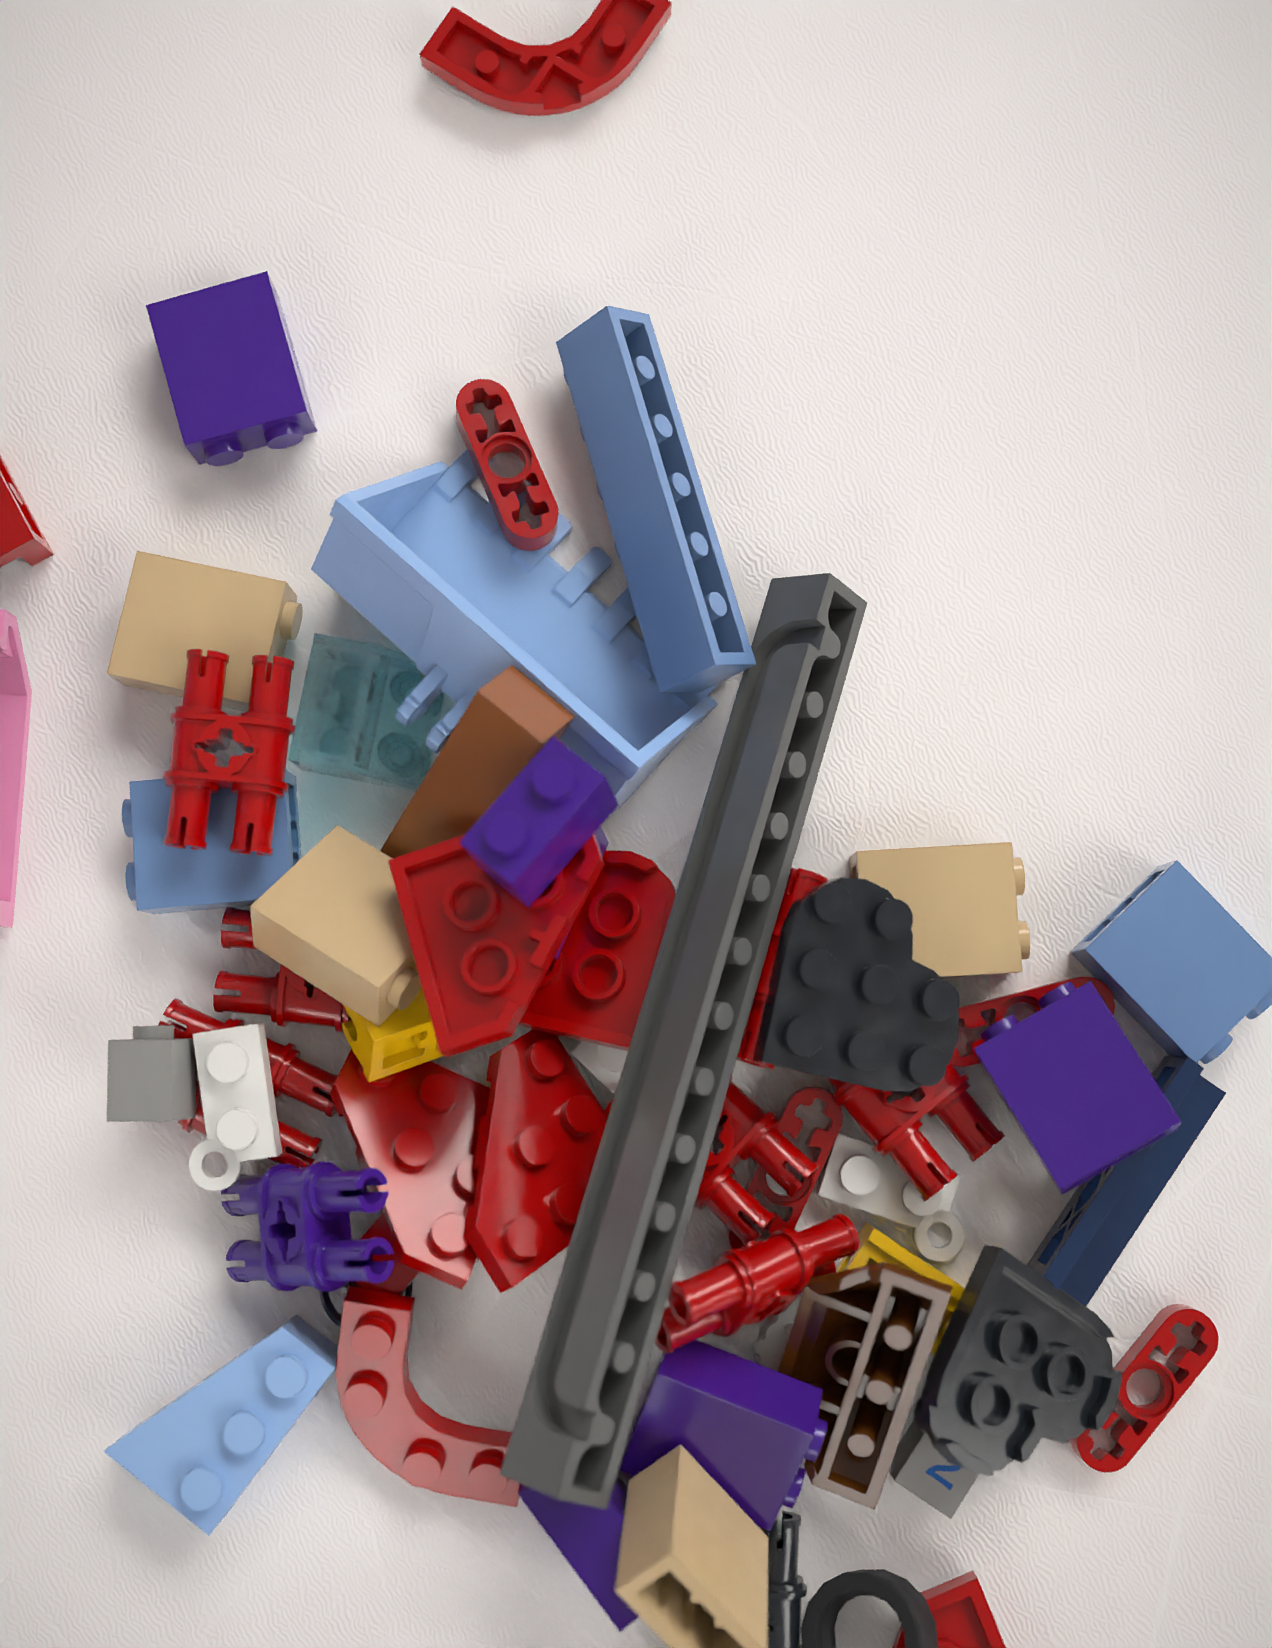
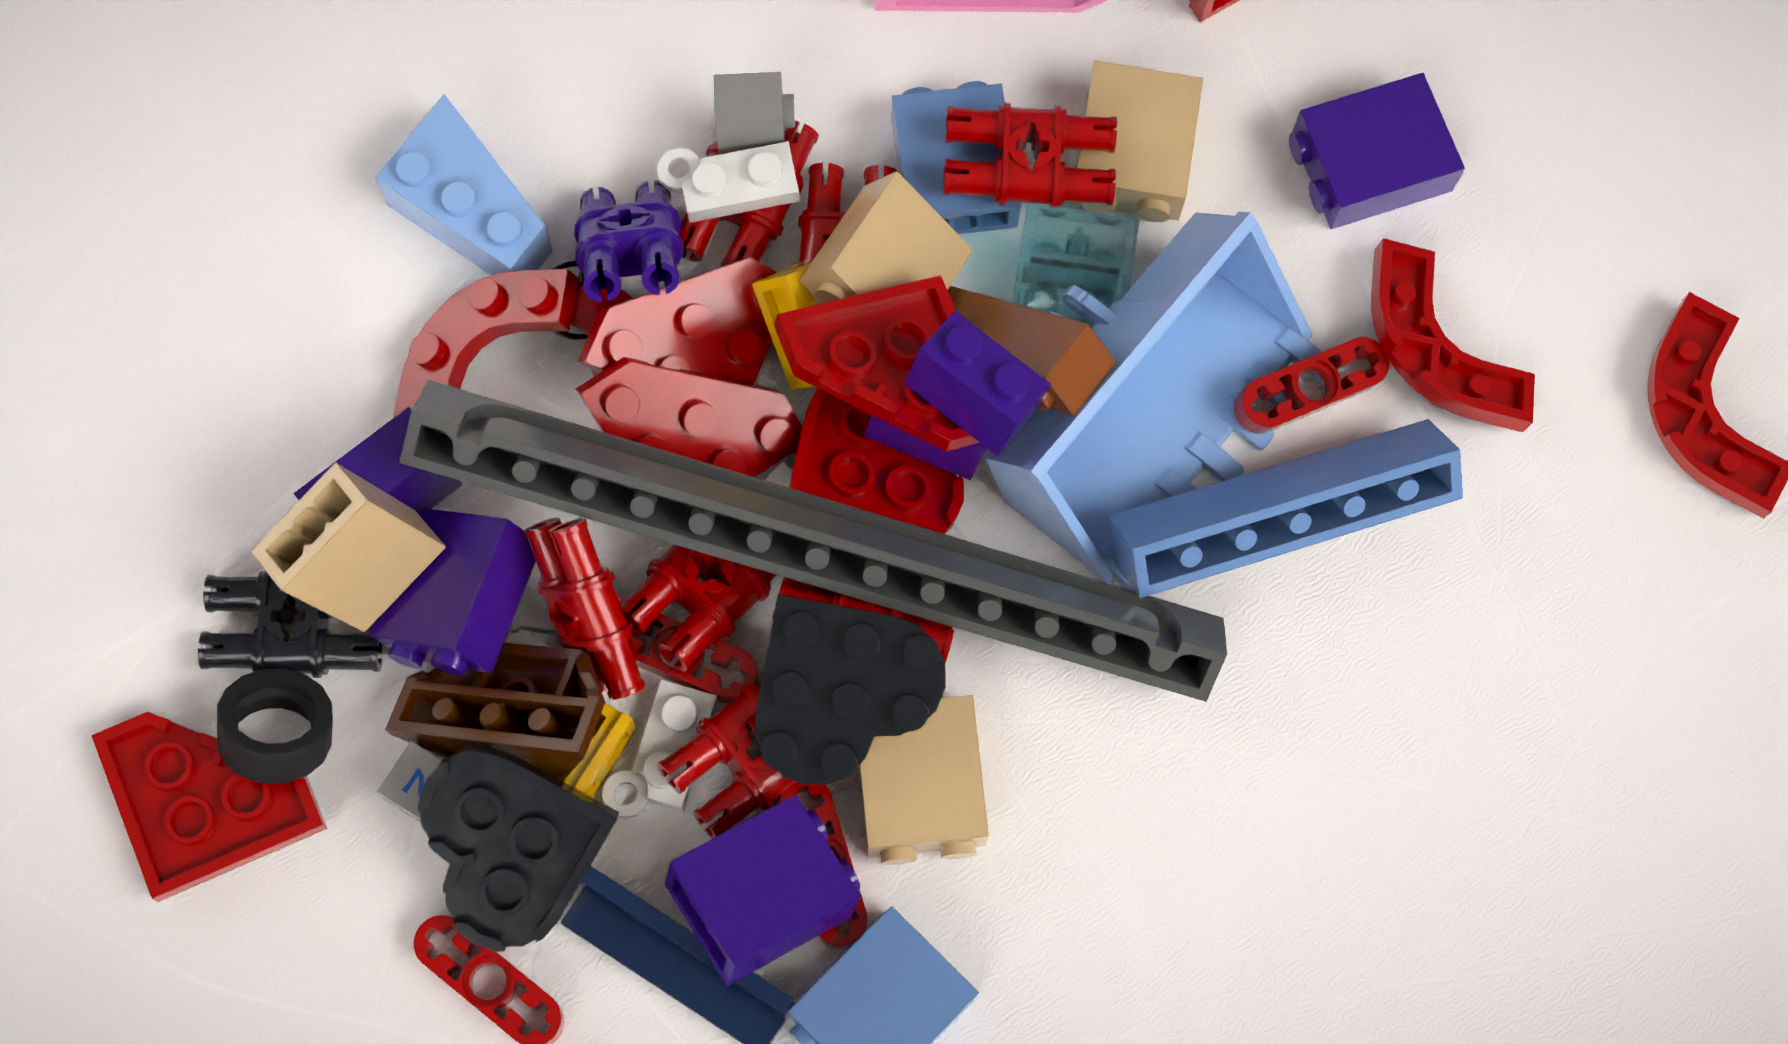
camera: 85 degrees right, 10 degrees down
(471, 344) = (1427, 358): none -> red plate

